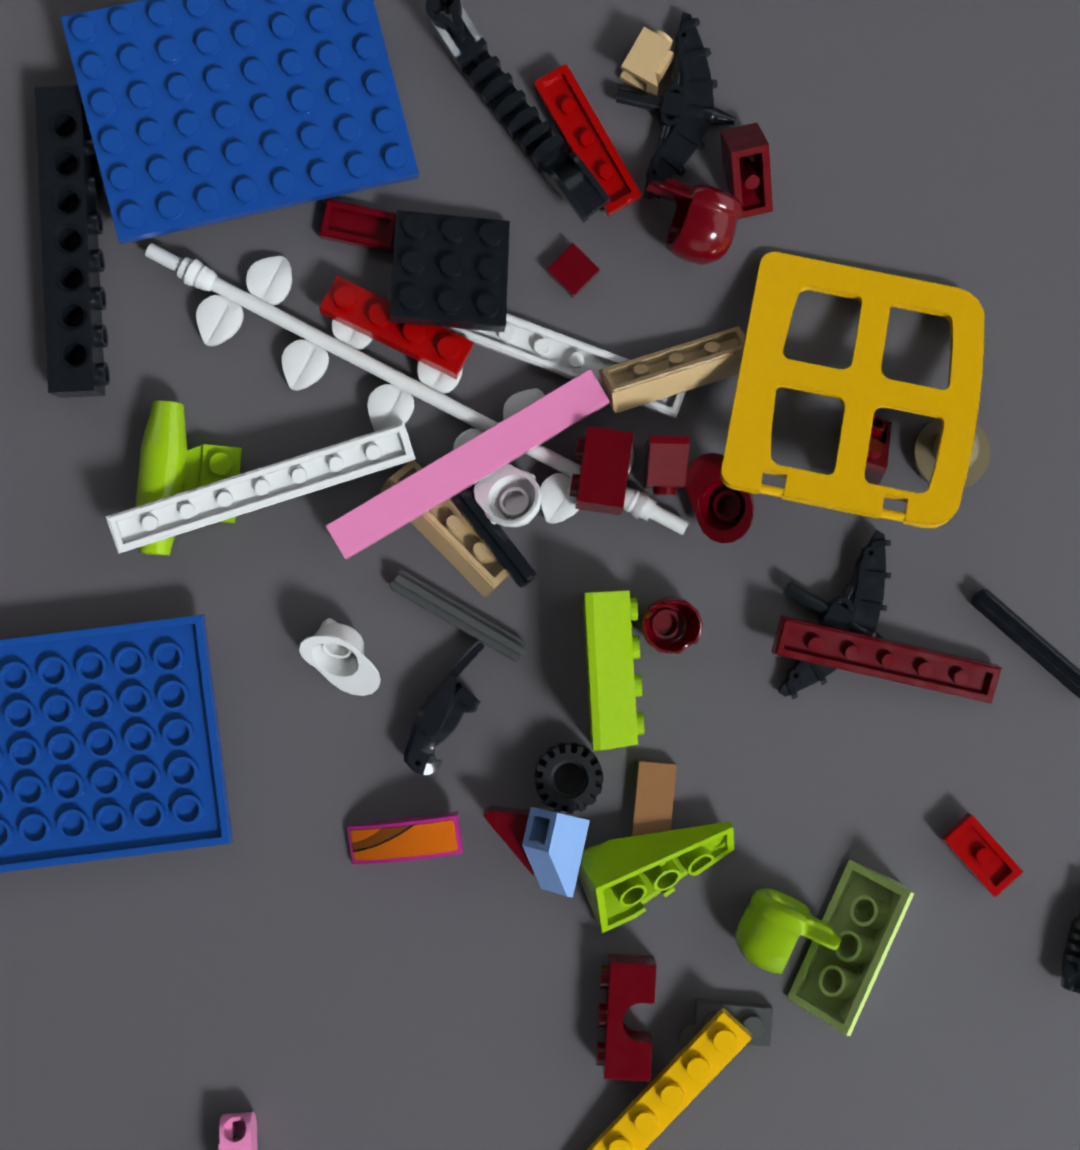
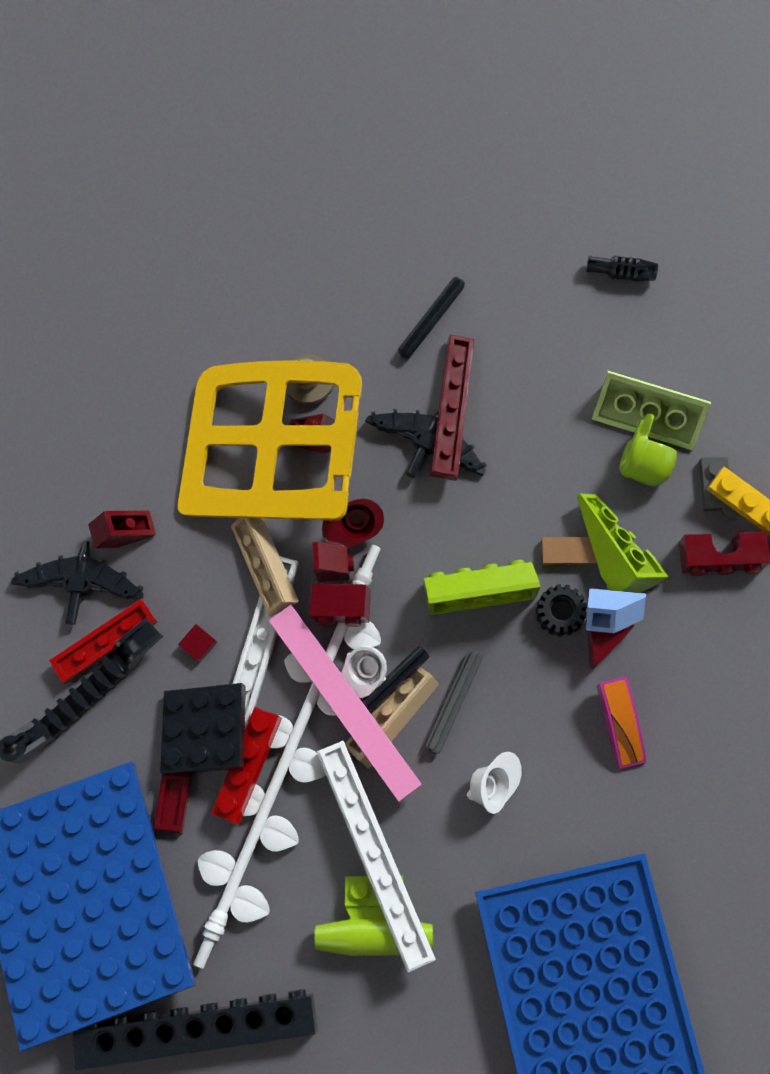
camera: 95 degrees left, 15 degrees down
(439, 718) = (529, 706): black animal -> none
(647, 61) = (46, 603): tan window -> none
(671, 625) = (444, 548): dark red hair -> none
(702, 220) = (158, 555): dark red piece -> none
(981, 854) = (576, 335): red plate -> none

